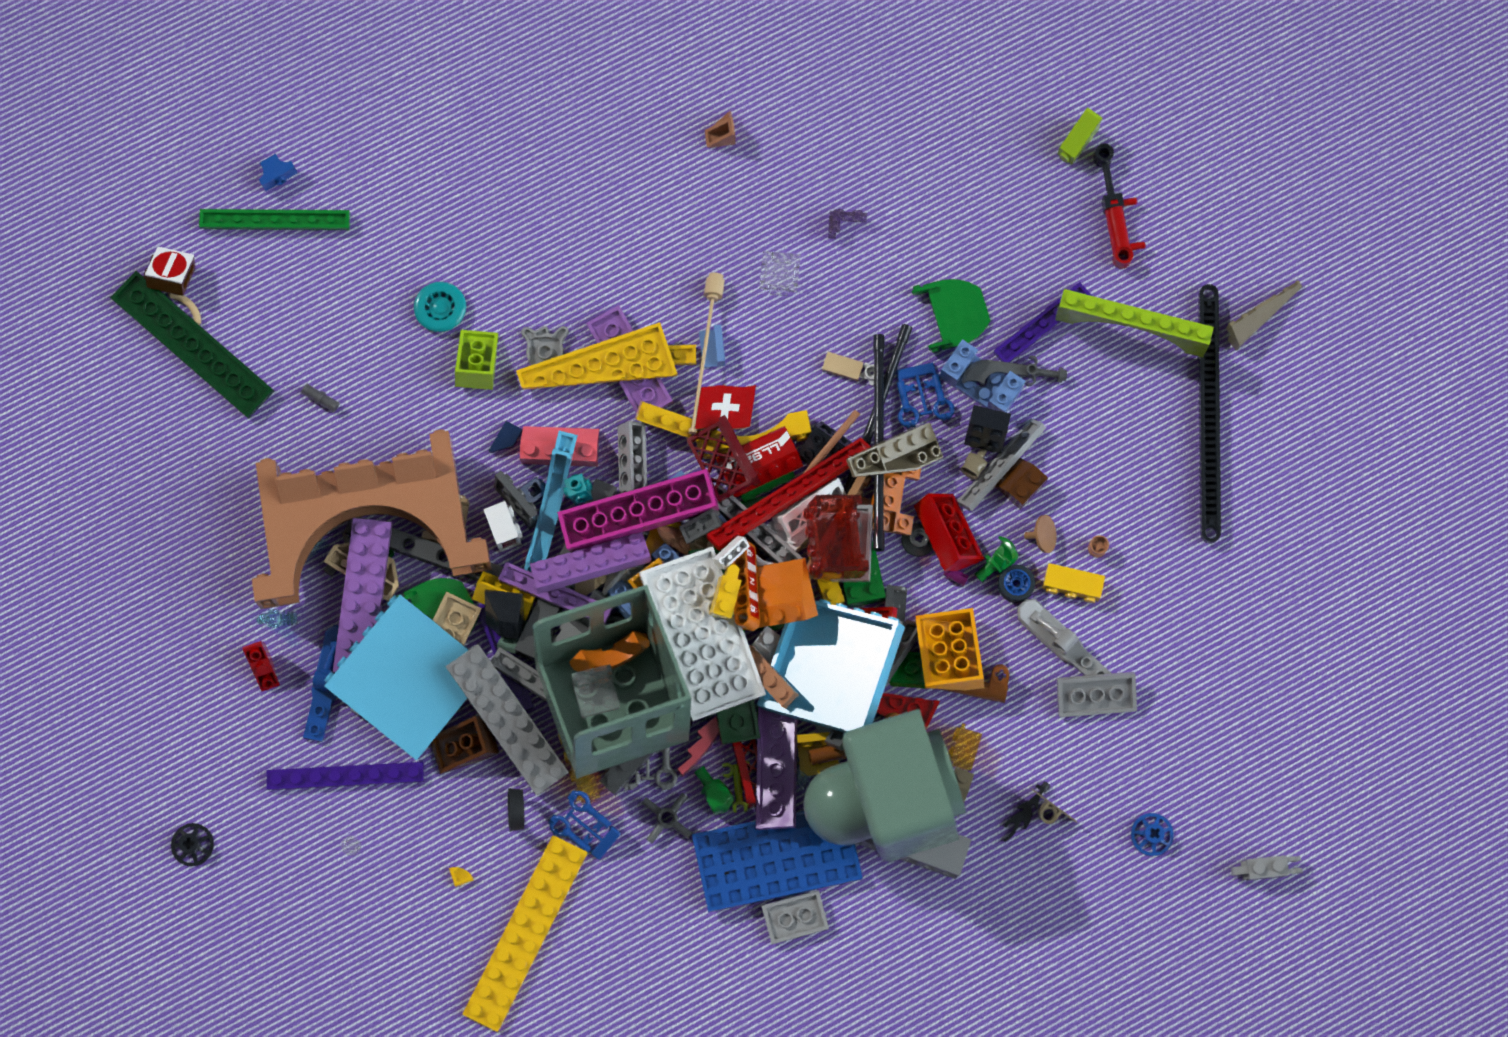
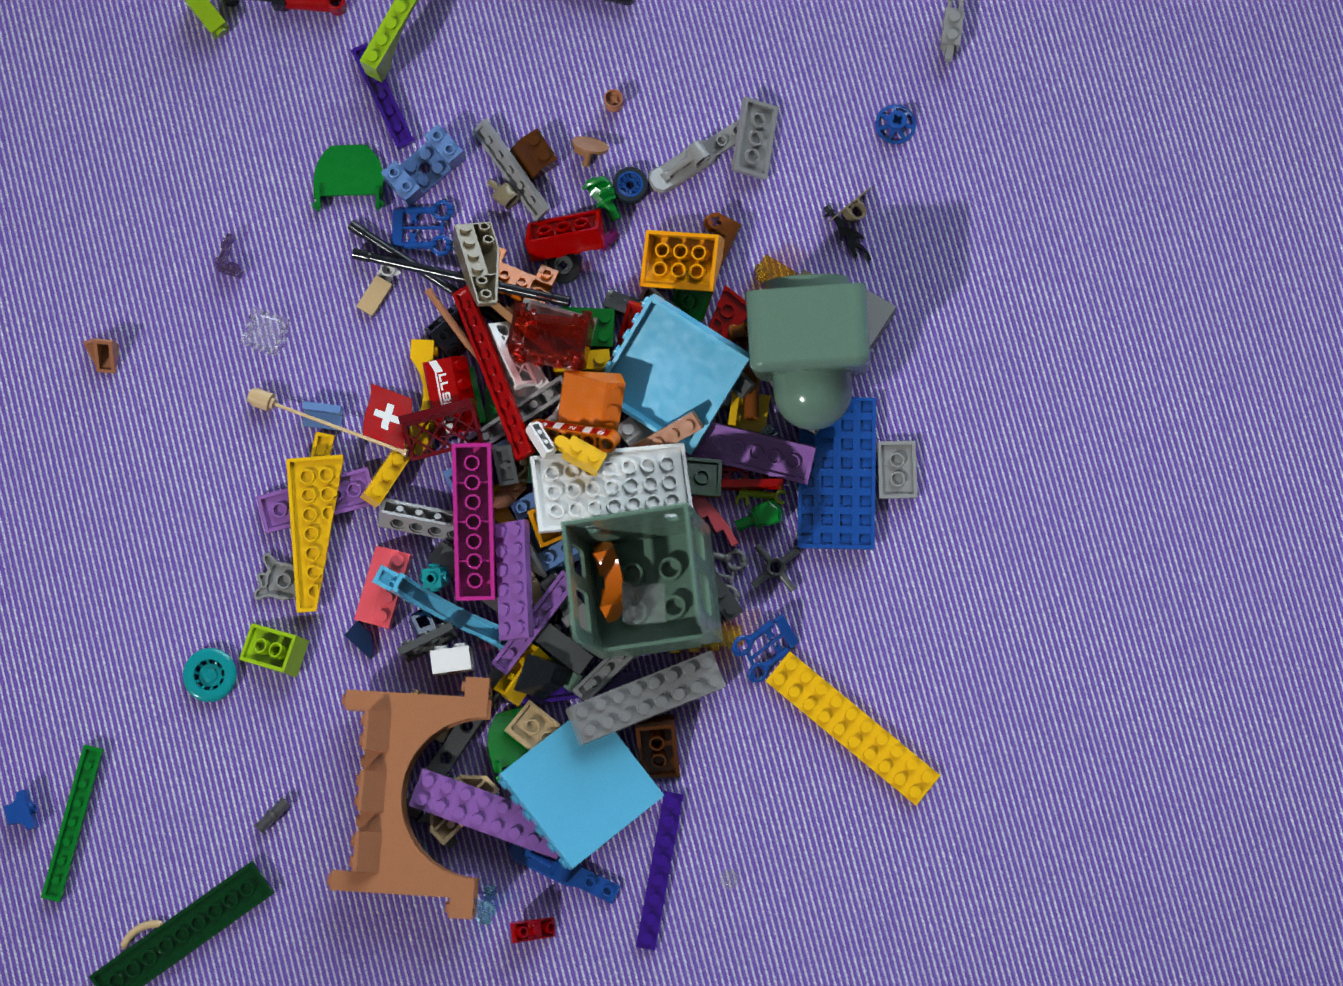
camera: 75 degrees left, 5 degrees up
(170, 271) = (99, 941): piece -> none
(460, 876) = (783, 778): yellow tile -> none
(515, 809) = (734, 709): black tyre -> none
(982, 369) = (413, 163): dark grey sword -> none
(987, 429) = (475, 172): black brick -> none
(1073, 583) = (643, 133): yellow brick -> none

